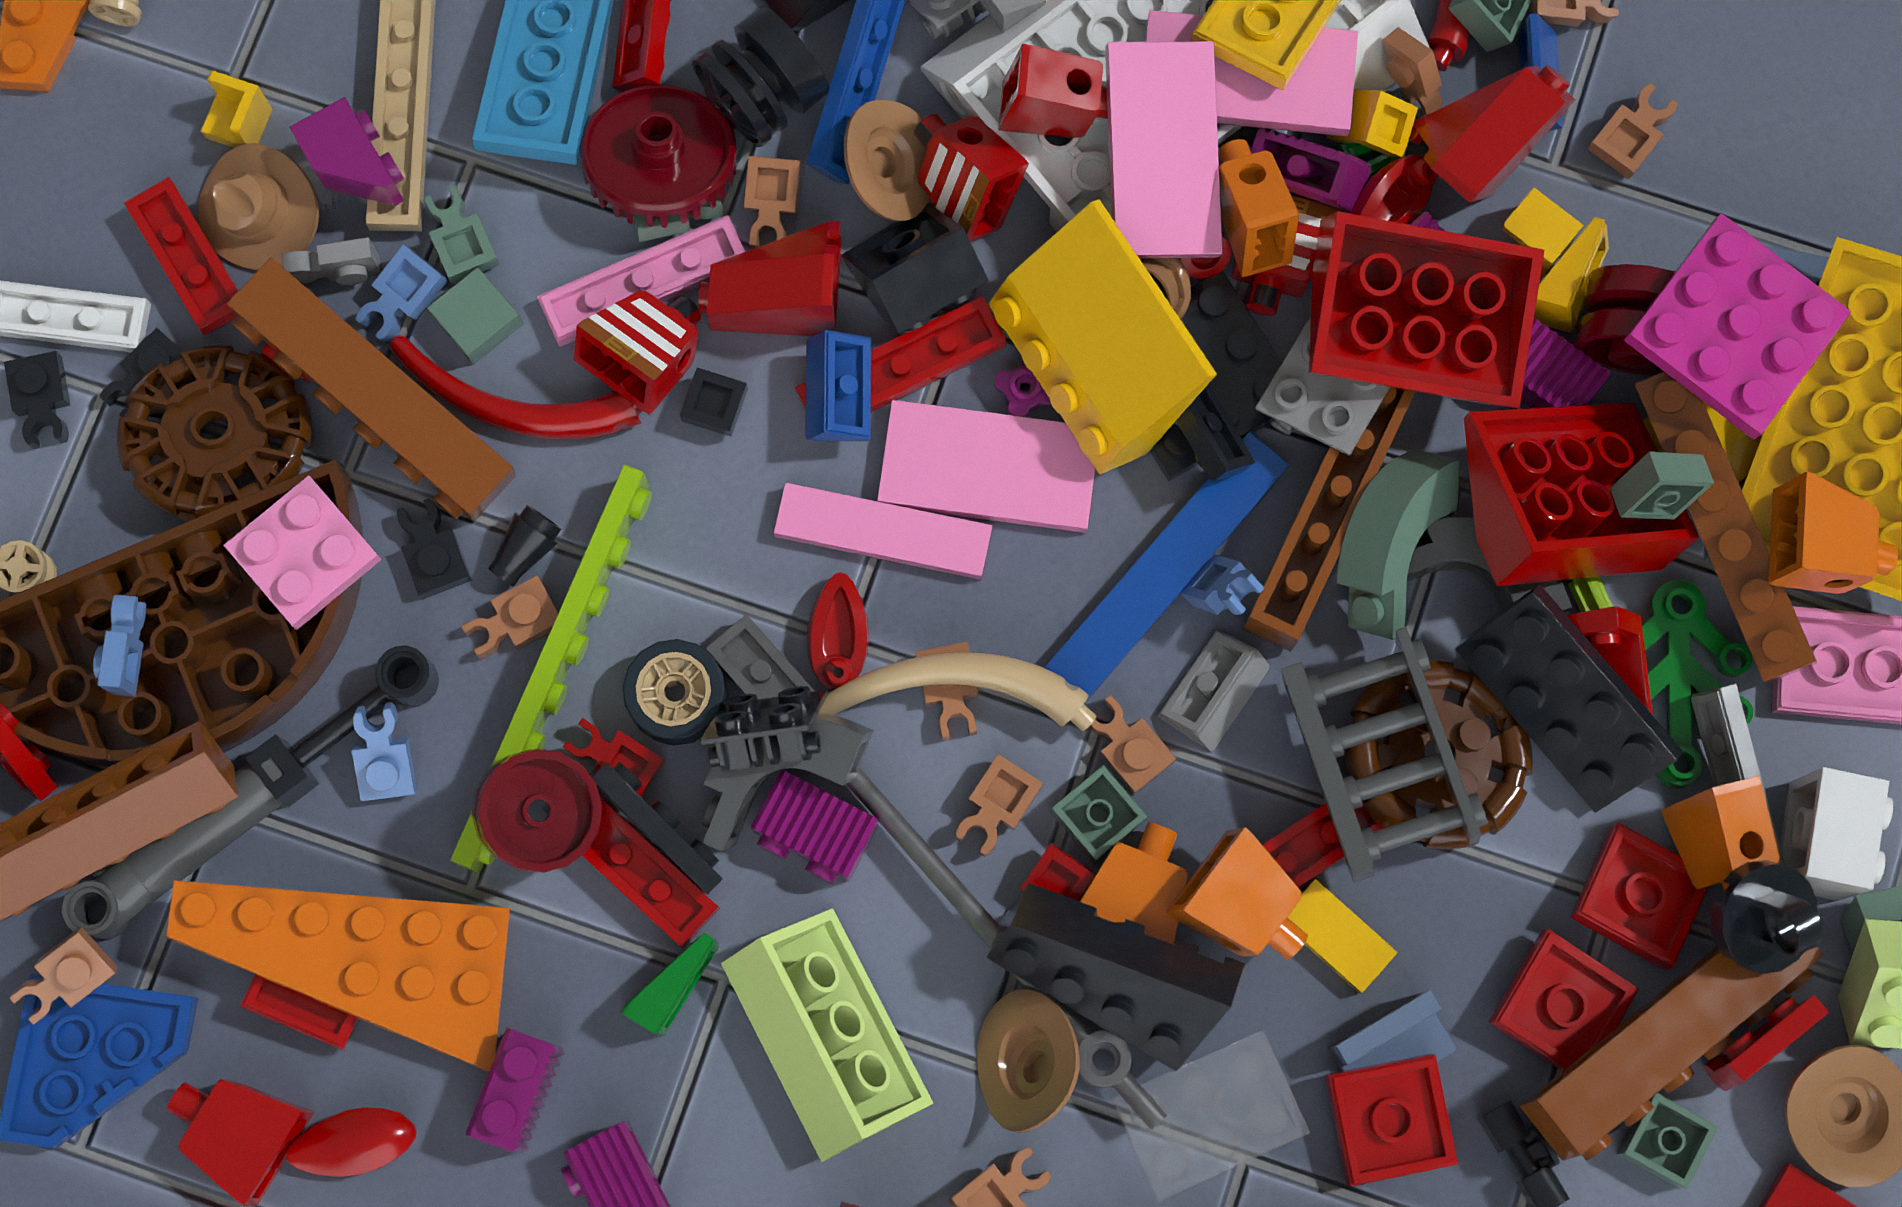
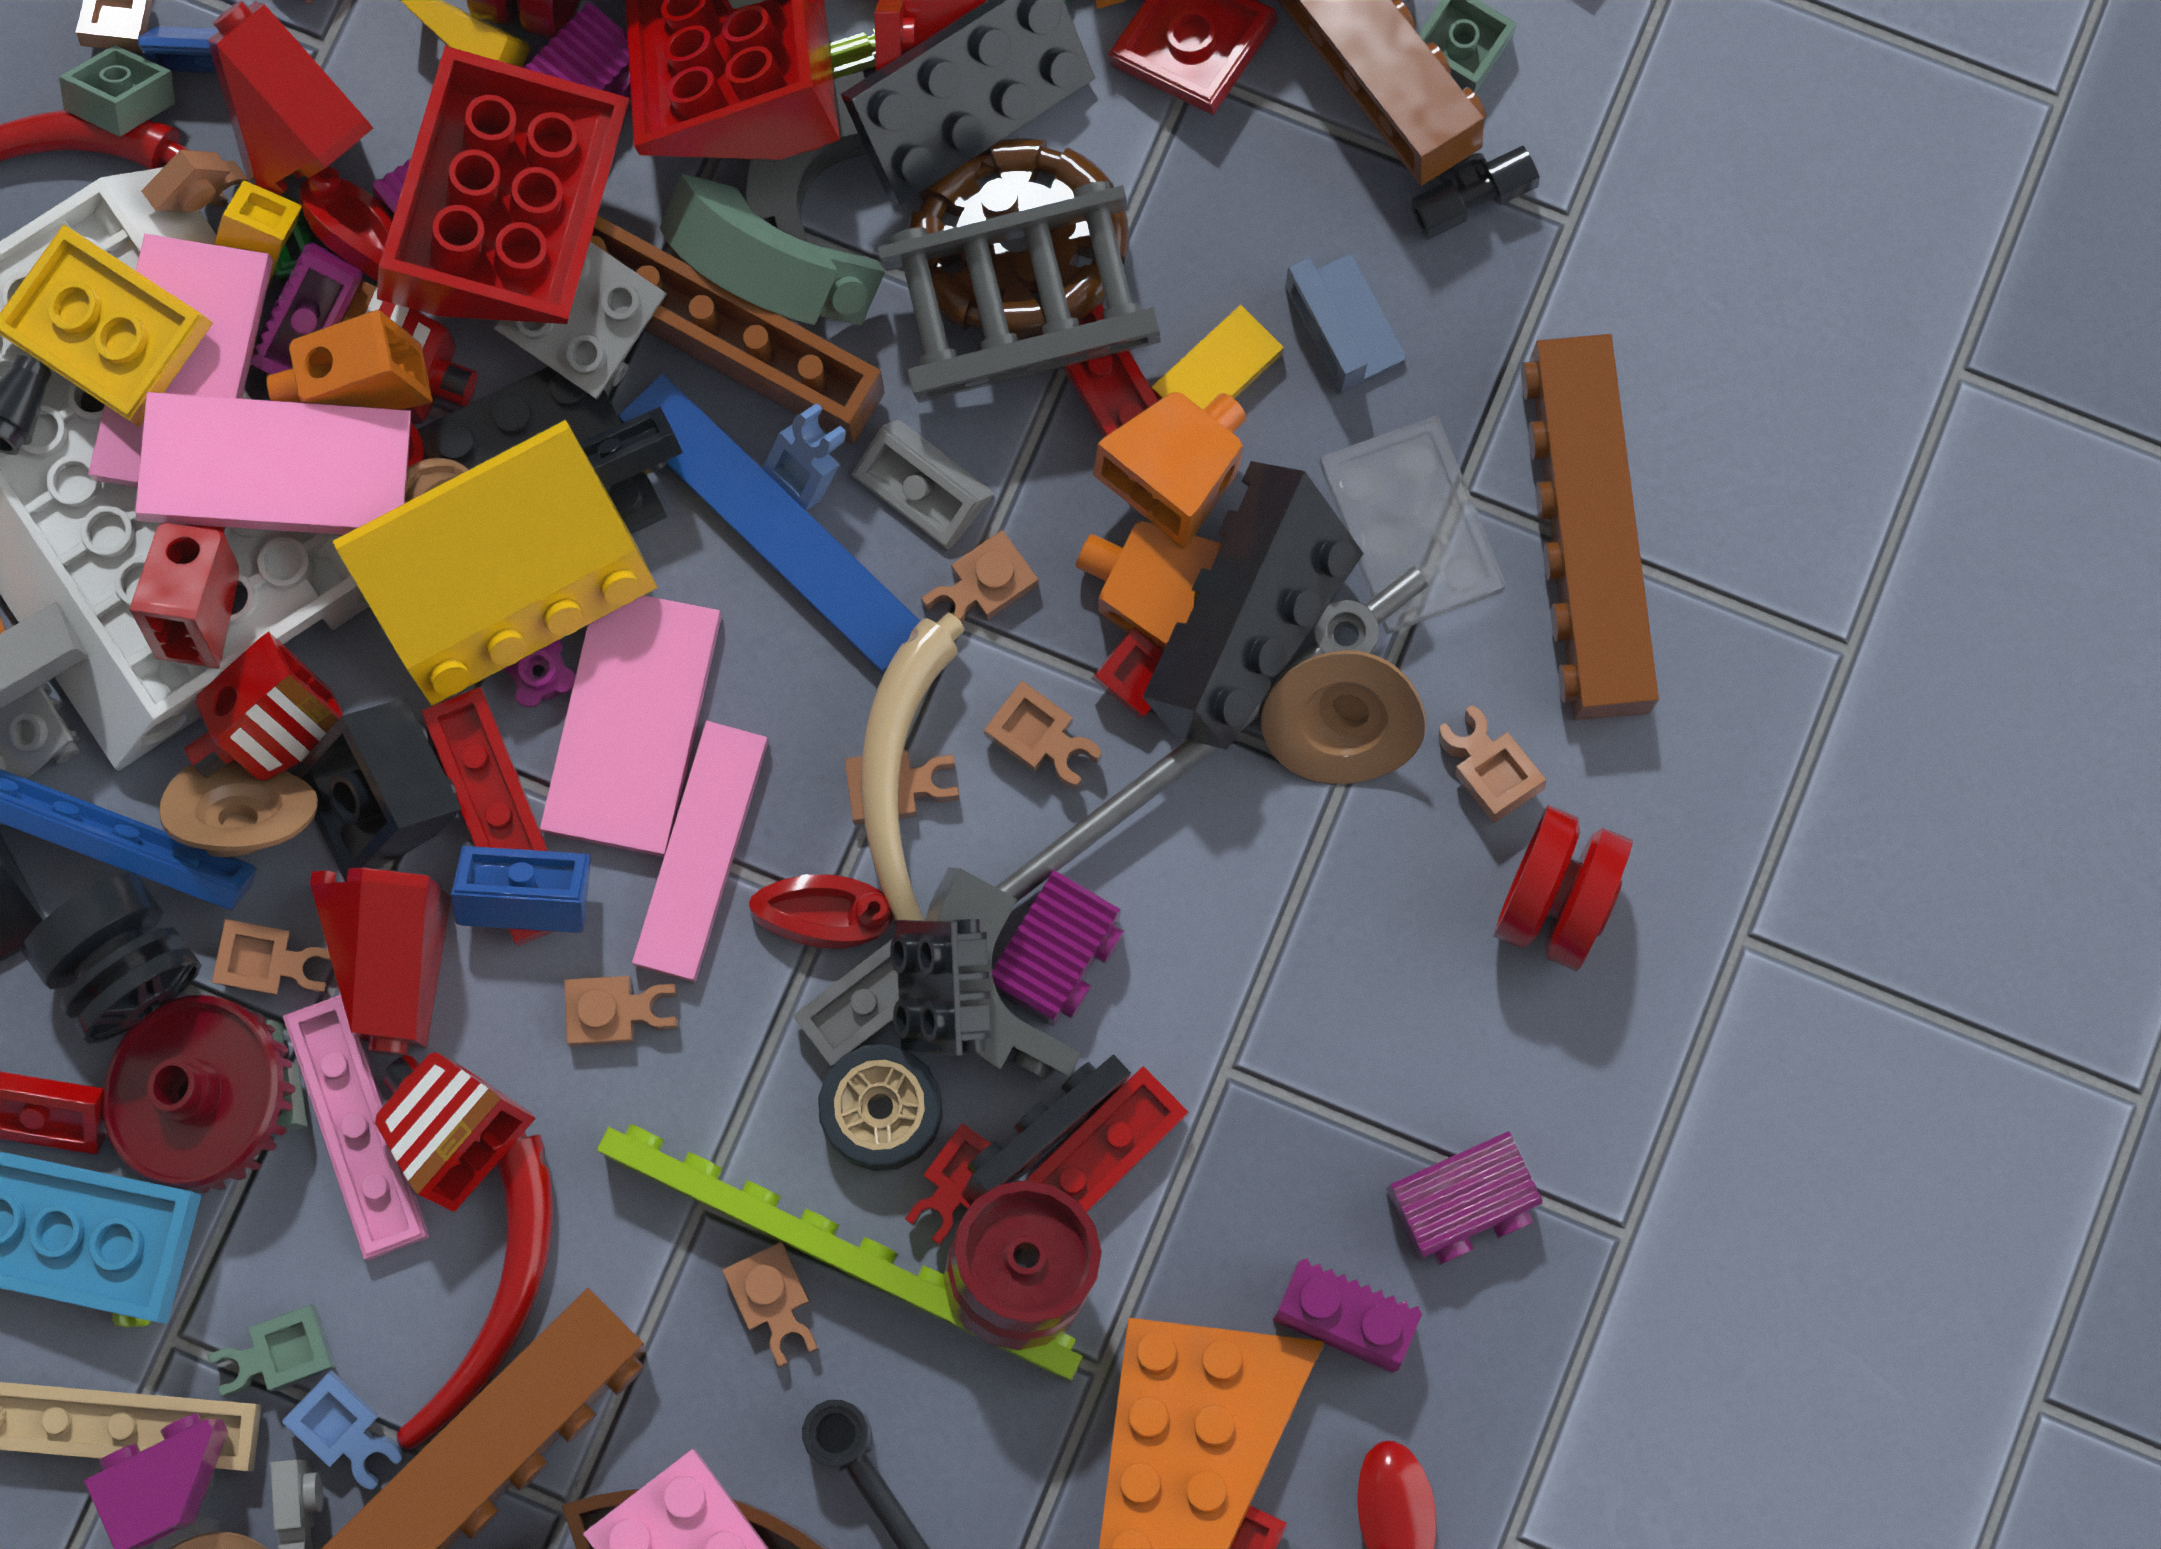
camera: 85 degrees left, 0 degrees up
(382, 763) = (940, 1467): medium blue plate -> none
(434, 557) = (687, 1399): black plate -> none
(475, 315) = (381, 1337): sand green piece -> none
(524, 544) = (682, 1284): black cone -> none
(665, 994) = (1245, 1135): green slope -> none
(714, 402) = (522, 1043): black plate -> none
(746, 468) = (606, 1010): none -> nougat plate
(826, 1033) = (1299, 948): yellowish green slope -> none
(1098, 814) = (1060, 623): sand green piece -> none
(1391, 1119) = (1426, 328): red plate -> none
(1543, 226) = (402, 59): yellow panel -> none
(1561, 1001) = (1305, 134): red plate -> none

